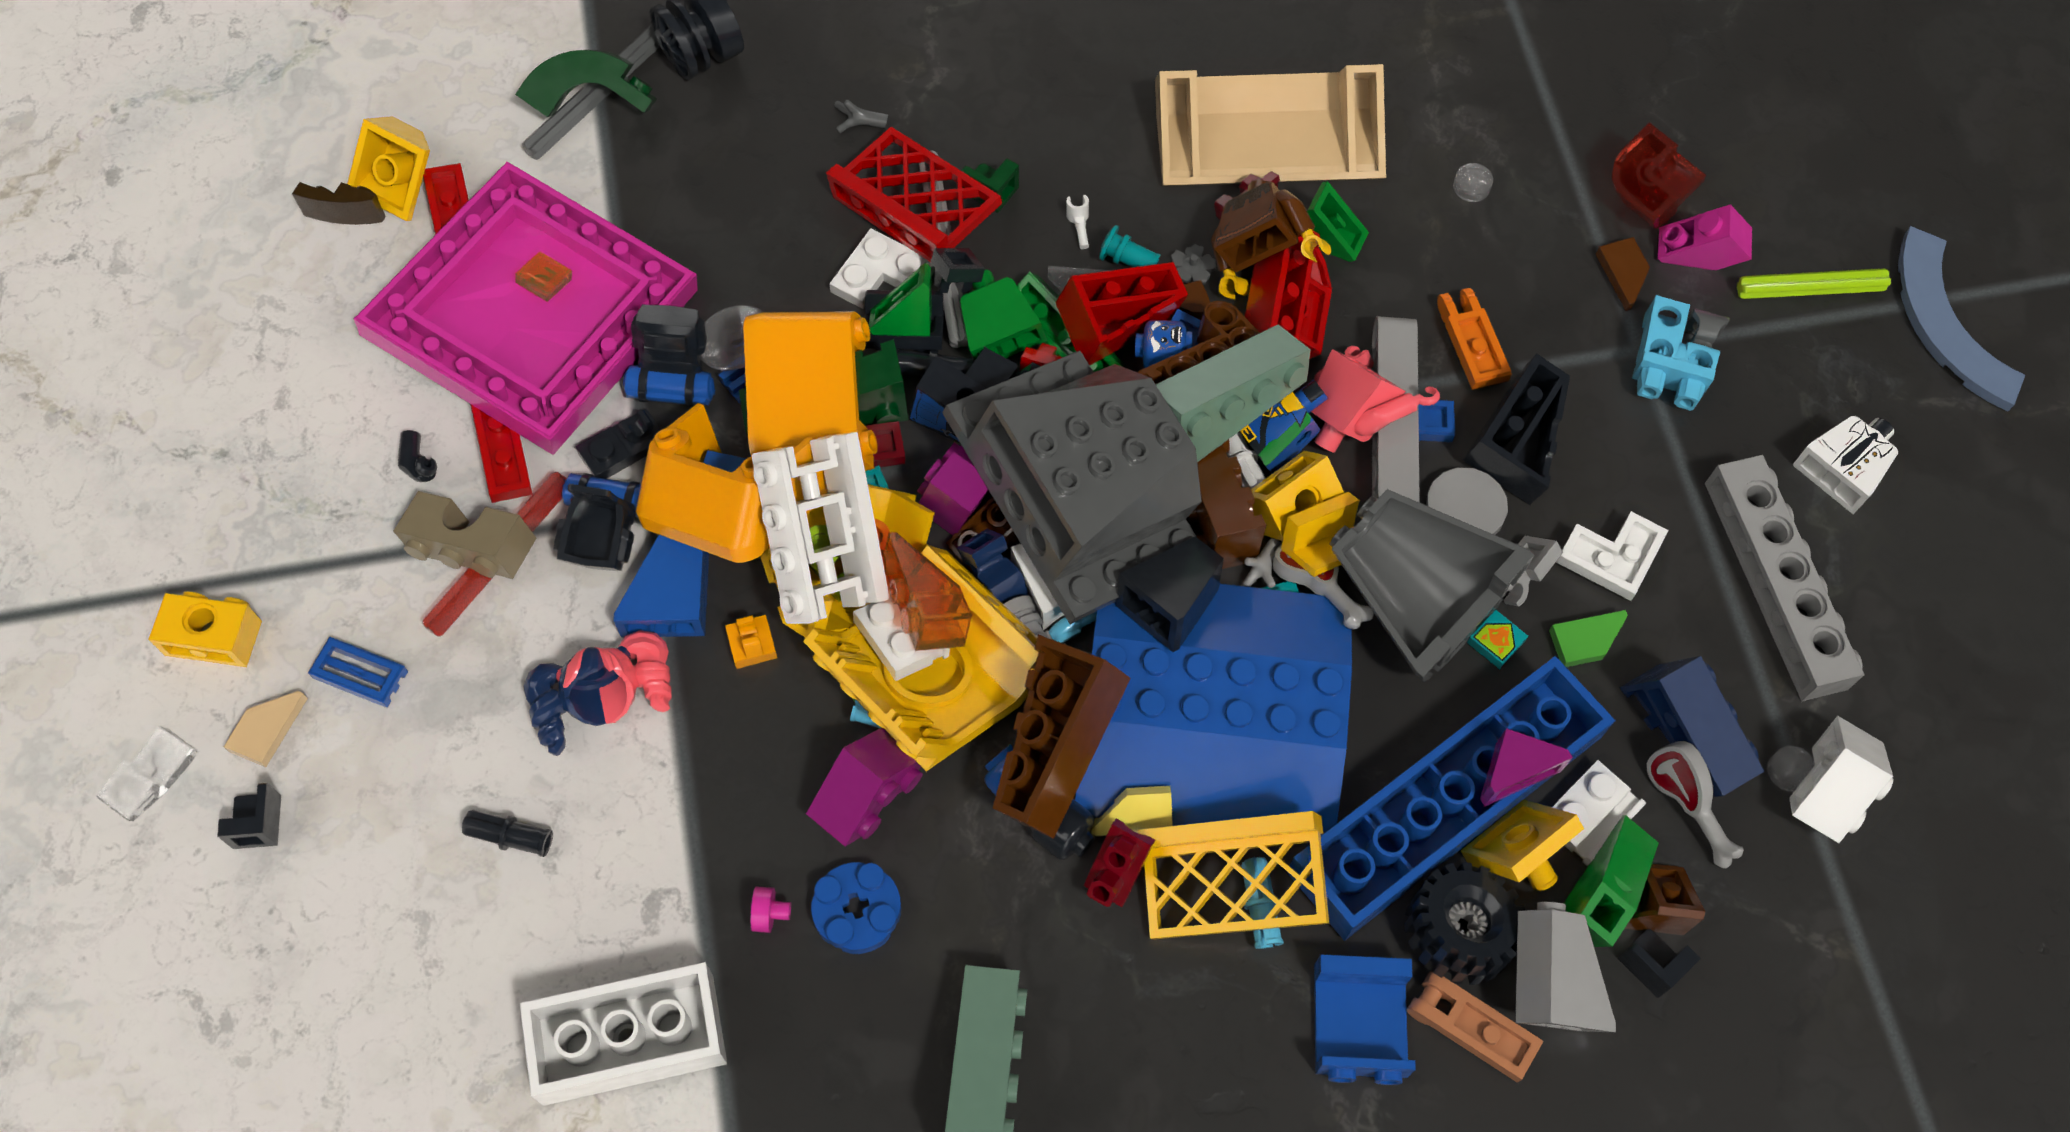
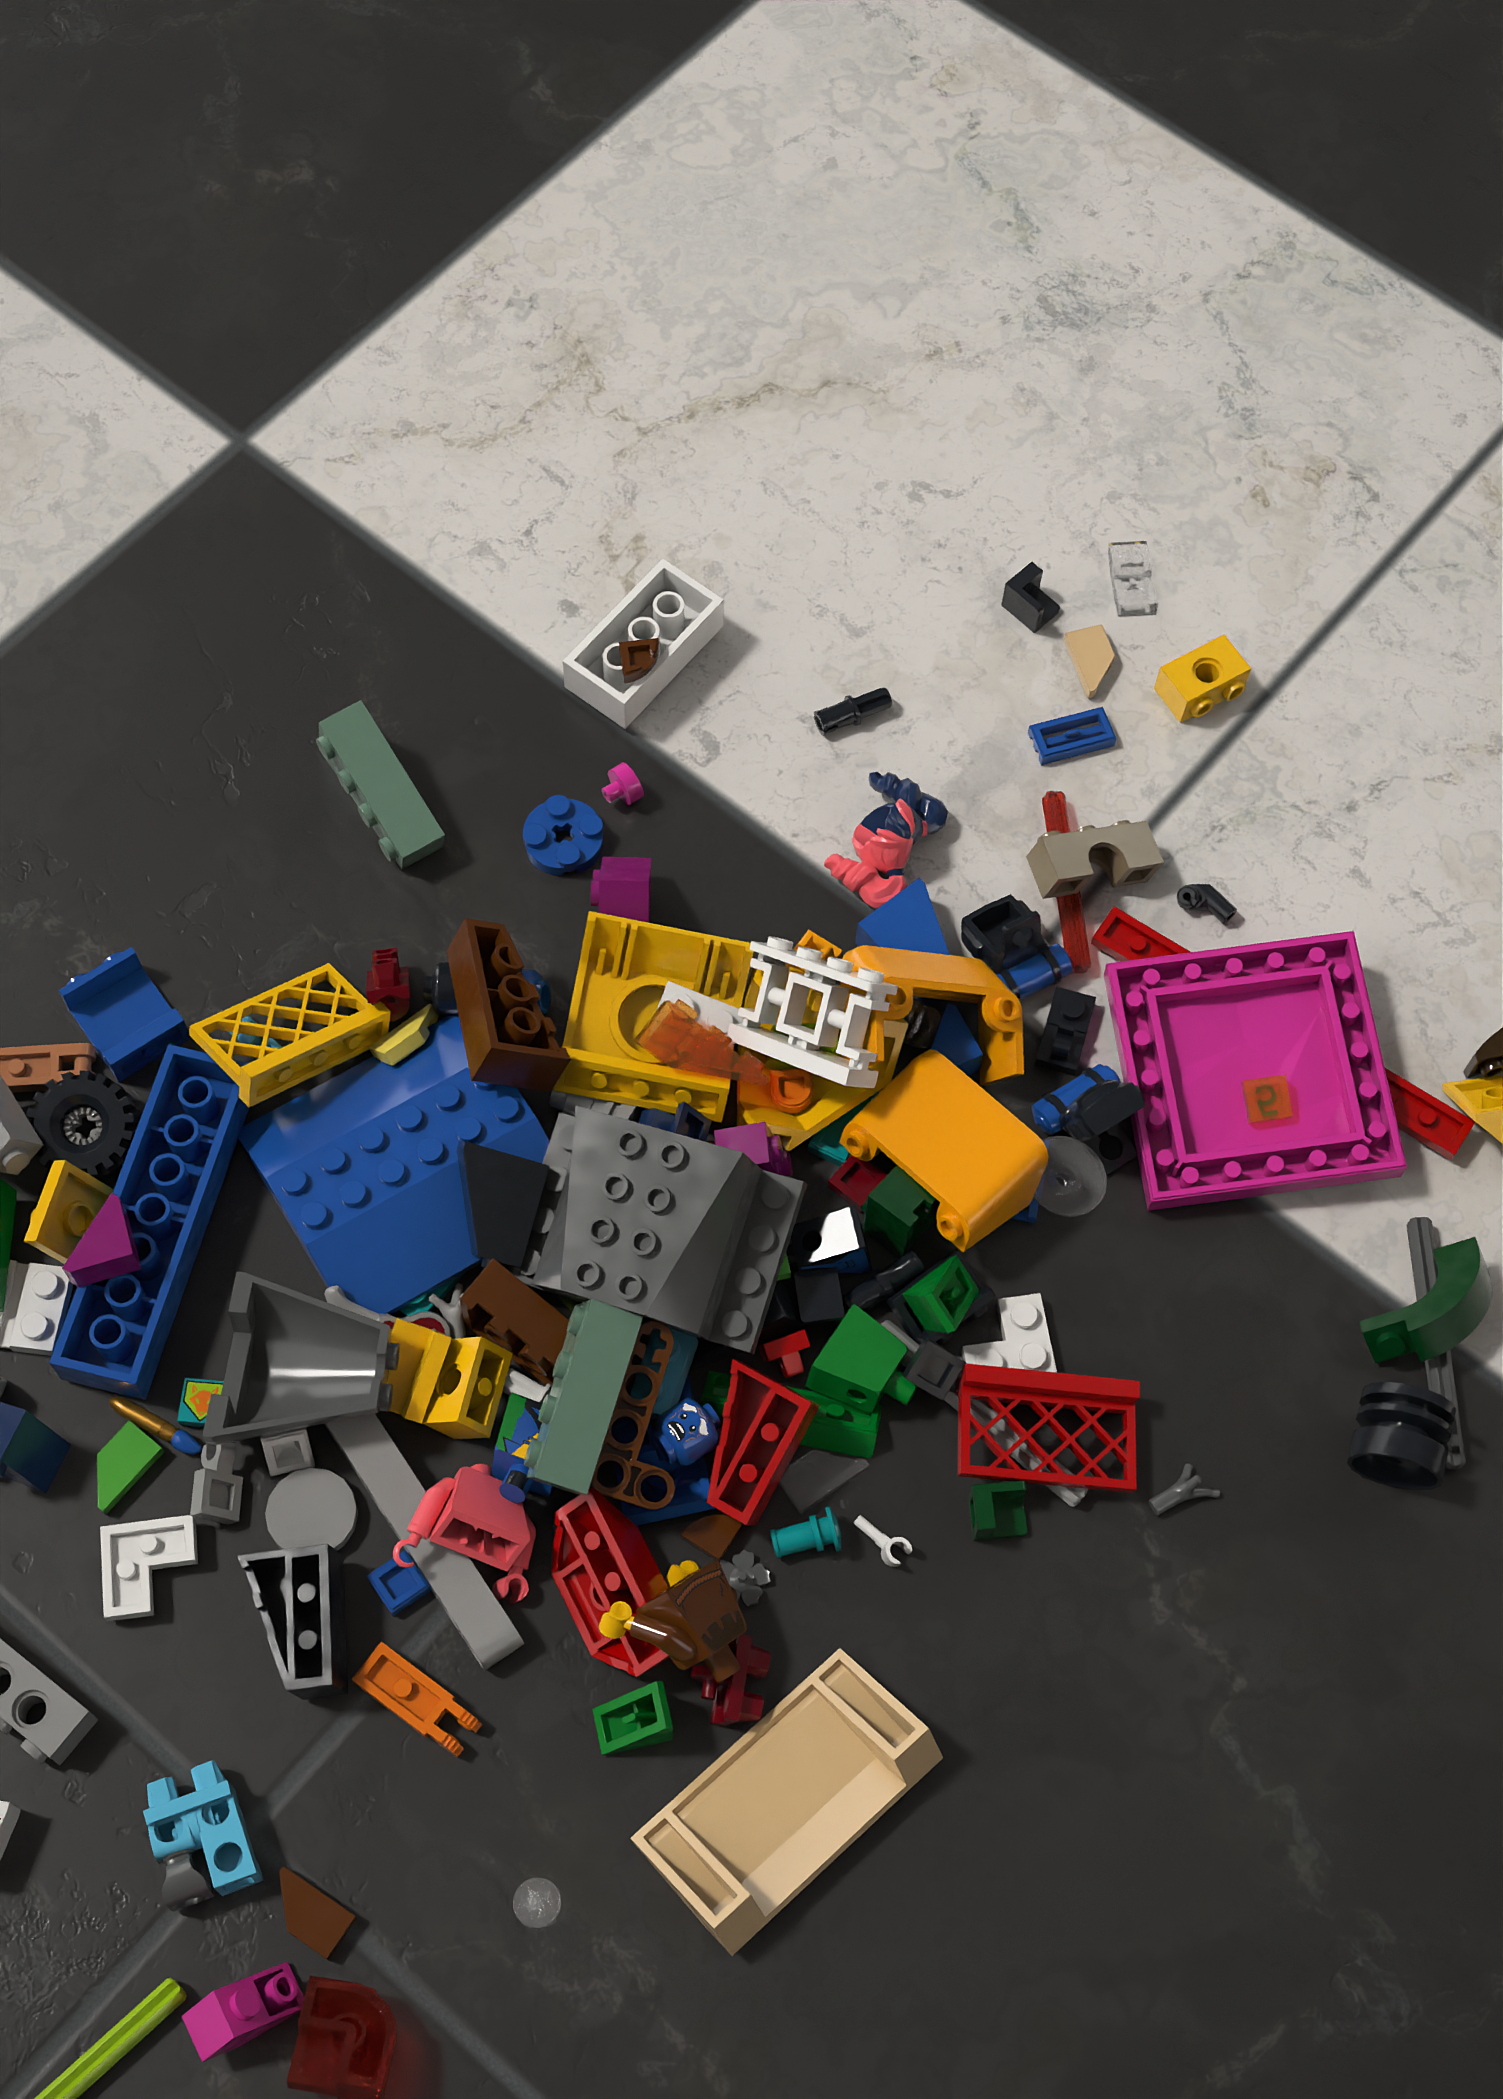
camera: 140 degrees right, 0 degrees up
(654, 994) = (638, 658): none -> reddish brown tile
(1533, 626) = (155, 1425): none -> pearl gold piece

